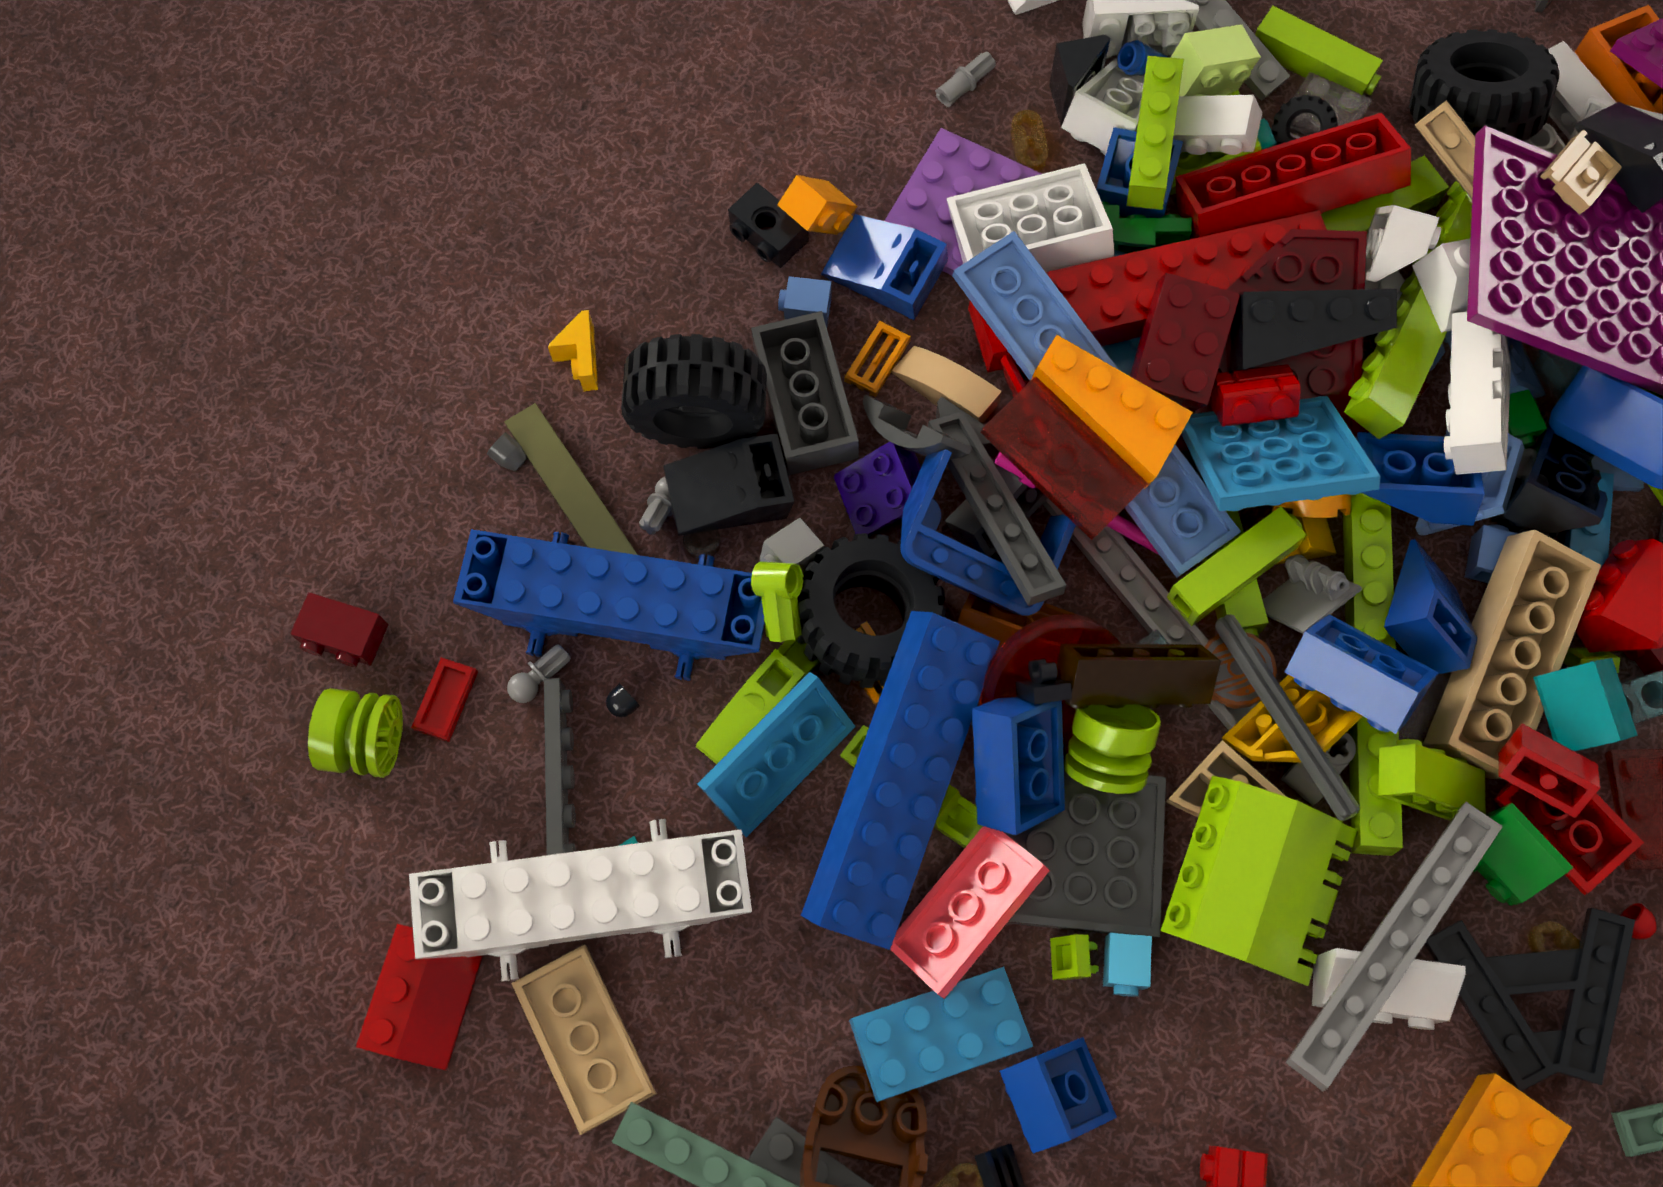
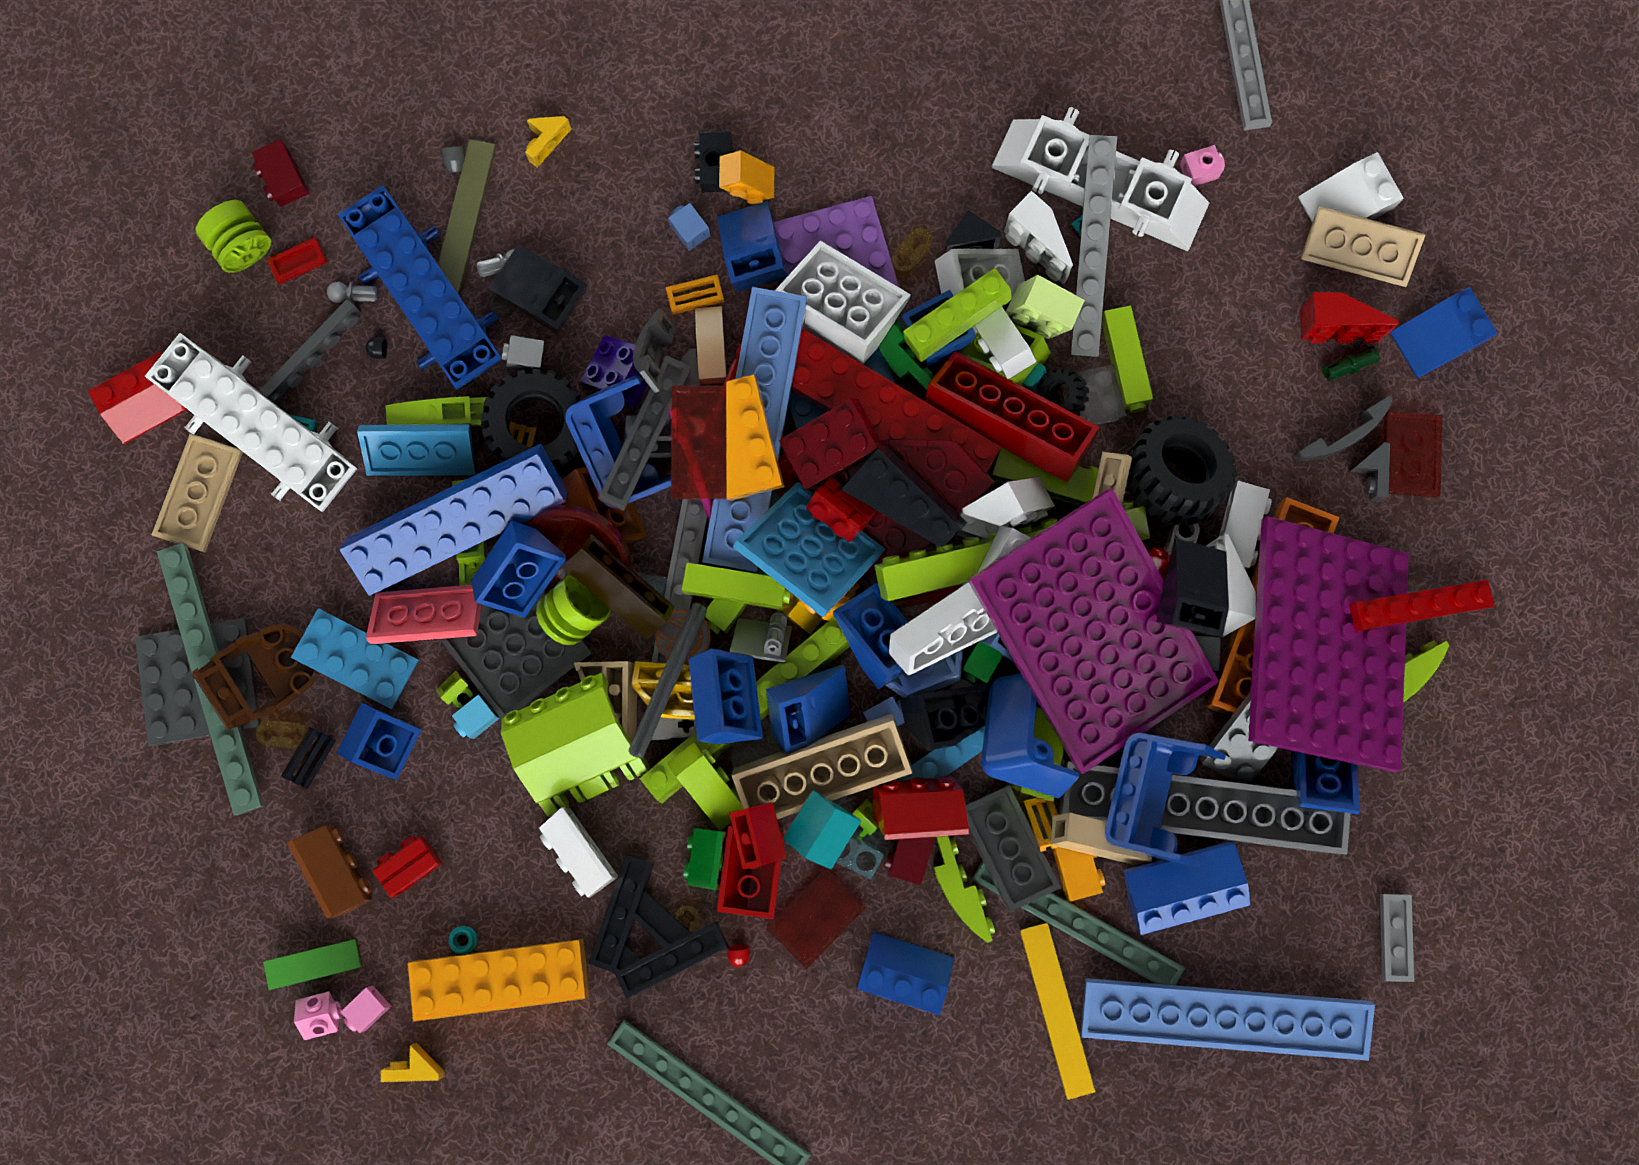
camera: 45 degrees right, 10 degrees up
(694, 391) = (563, 220): black tyre -> none
(779, 587) = (491, 368): lime piece -> none
(806, 393) = (630, 276): dark grey brick -> none
(965, 79) = (919, 179): light grey axle -> none
(1043, 684) = (559, 544): black tile -> none
(1133, 57) = (1022, 263): blue cone -> none
(1393, 947) = (588, 832): light grey plate -> none
(1581, 172) = (1139, 566): tan plate -> none

